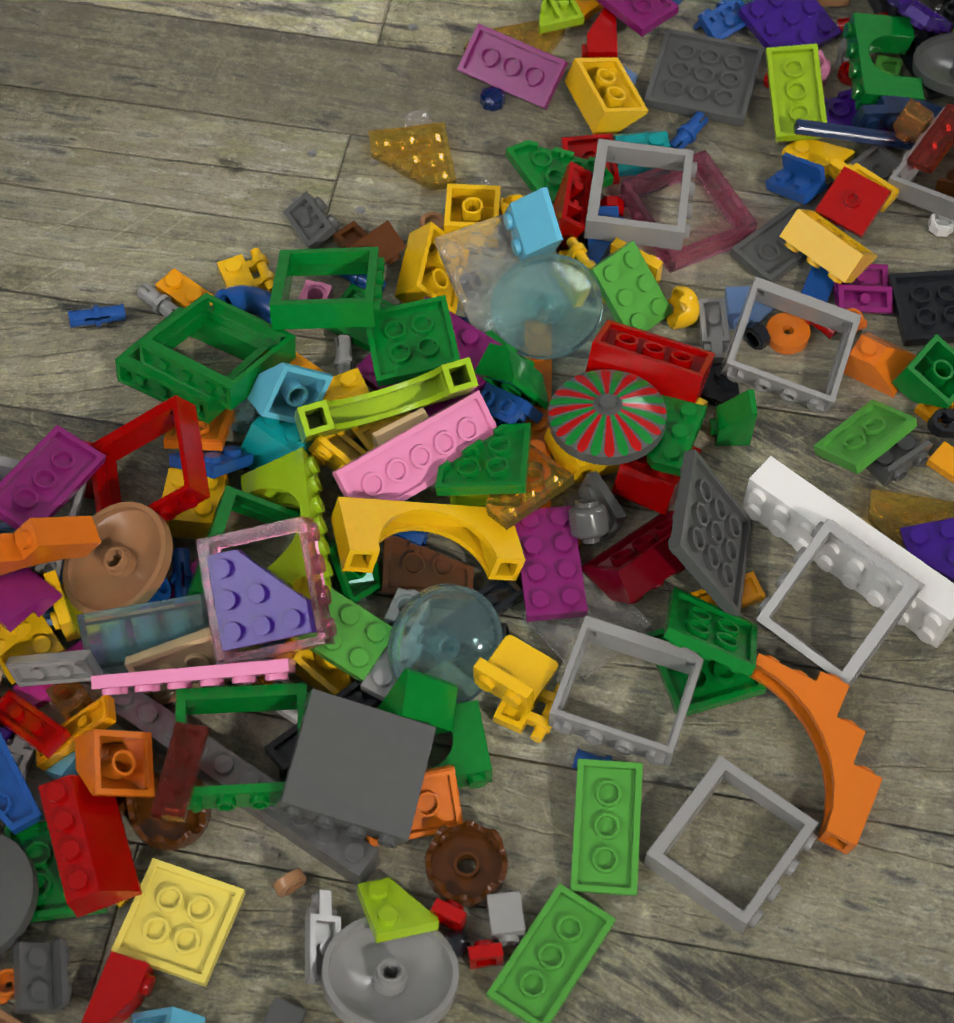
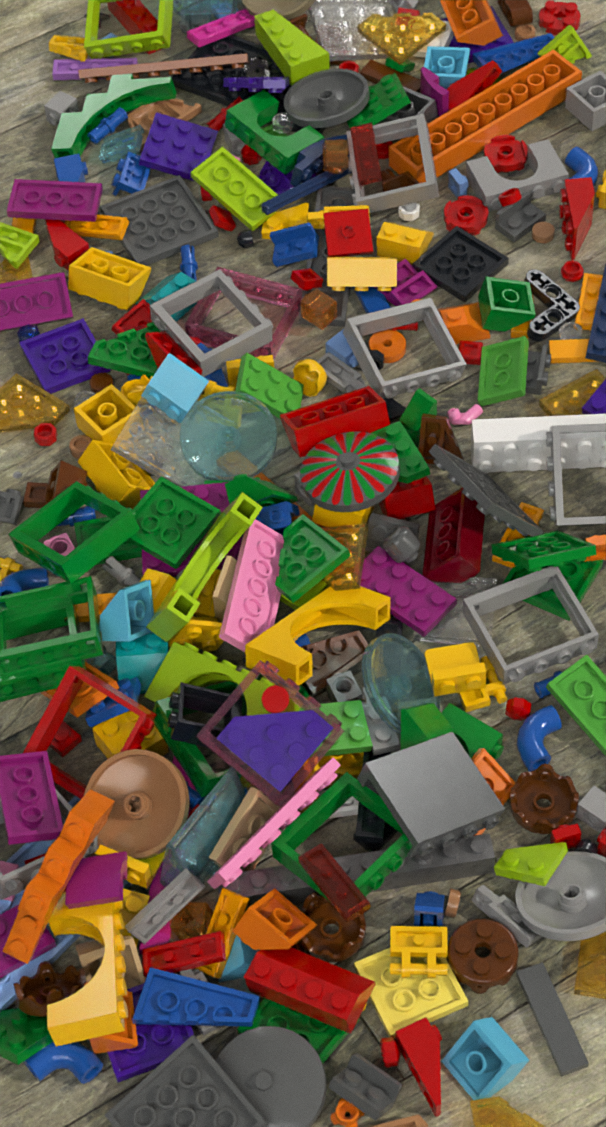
camera: 40 degrees left, 5 degrees down
(94, 963) = (390, 1052): none -> red tile
(152, 459) = (65, 740): none -> red plate
(215, 890) = (418, 942): none -> yellow plate
(256, 871) = (429, 909): none -> blue slope
(260, 513) = (201, 700): none -> black window
(265, 976) = (477, 971): none -> reddish brown plate
(285, 563) = (275, 699): none -> red tile
(413, 191) = (45, 434): none -> red tile
(491, 130) = (61, 356): none -> dark purple plate
(508, 181) = (100, 381): none -> reddish brown tile
(524, 794) = (532, 735): none -> blue cylinder
(538, 759) = (518, 708): none -> red tile
(648, 48) = (105, 227): none -> light orange tile
(730, 455) = (437, 431): none -> reddish brown wing
(752, 251) = (318, 308): none -> clear orange brick
(760, 111) = (222, 218): none -> red tile
(763, 145) = (245, 239): none -> black hinge
(771, 217) = (306, 279): none -> red plate
(786, 453) = (466, 418): none -> bright pink arm
(857, 395) = (471, 351): none -> red tile
(902, 62) = (281, 123): none -> clear tile
(903, 246) = (402, 242): none -> yellow slope

